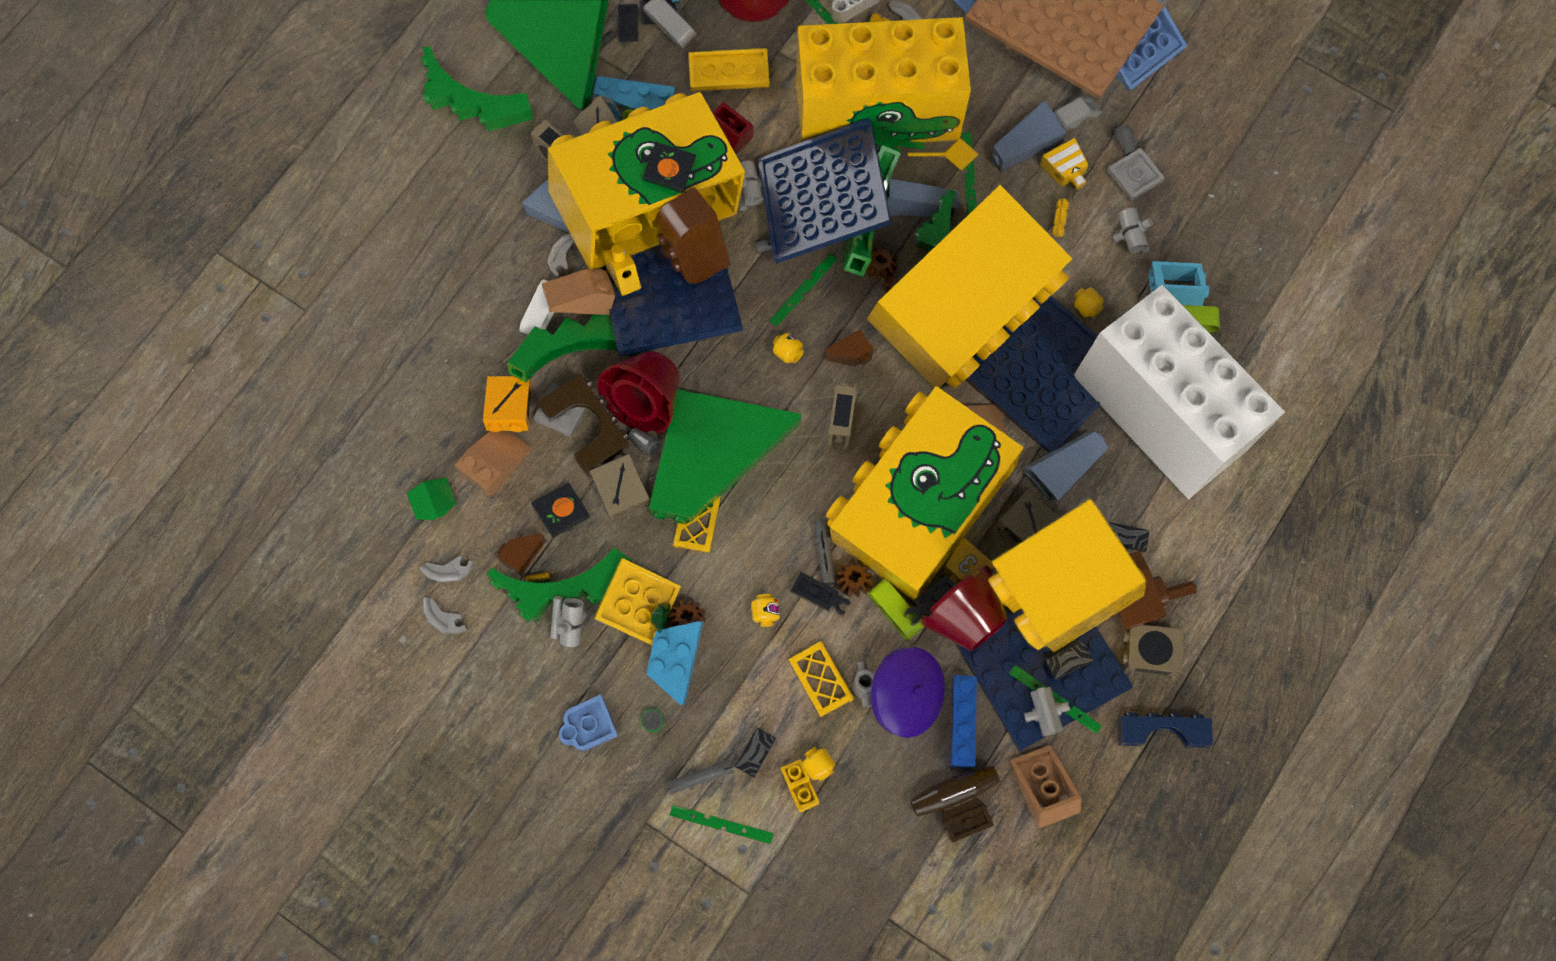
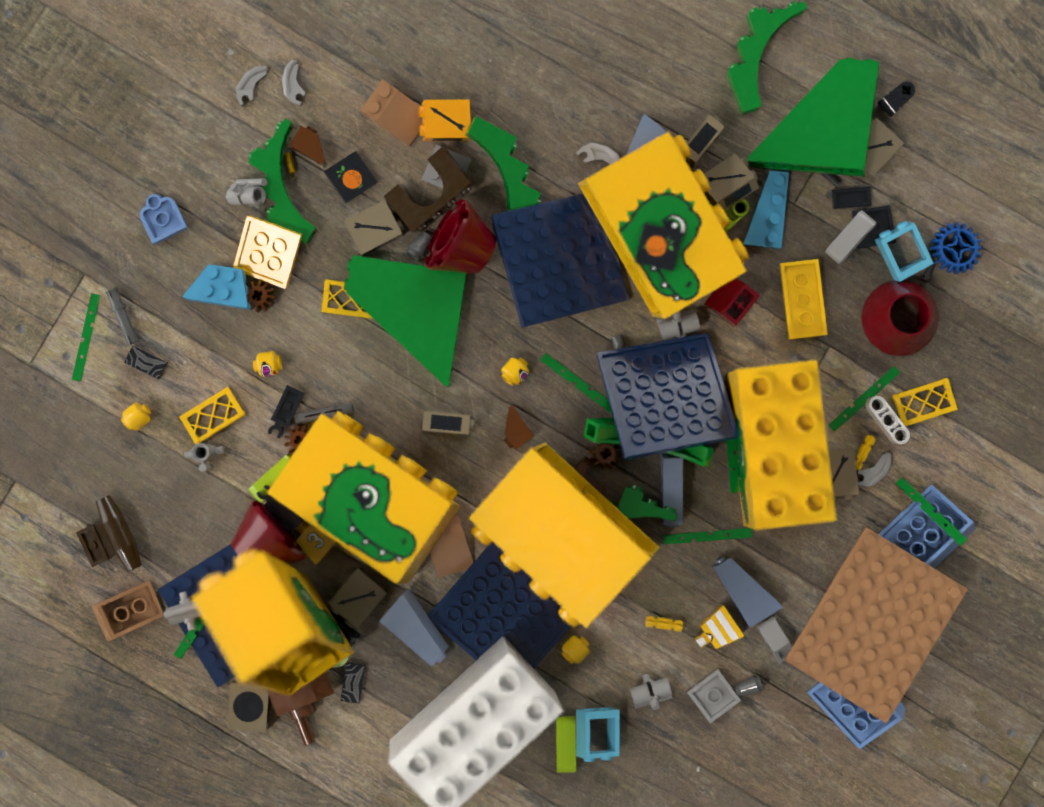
camera: 90 degrees right, 15 degrees up
(431, 499) = (355, 63): green slope -> none
(537, 312) = (542, 142): white beam -> none
(580, 292) = (552, 175): medium nougat slope -> none
(617, 261) = (576, 212): yellow torso -> none
(652, 720) = (169, 273): tile -> none
(659, 616) = (252, 271): dark green piece -> none
(691, 237) = (600, 273): reddish brown brick -> none
(800, 786) = (119, 401): yellow slope -> none
(907, 692) = (196, 490): dark purple dish -> none
(958, 154) = (726, 526): yellow piece -> none
(963, 722) = (177, 539): blue arch -> none
(1193, 731) = (179, 688): dark blue arch -> none

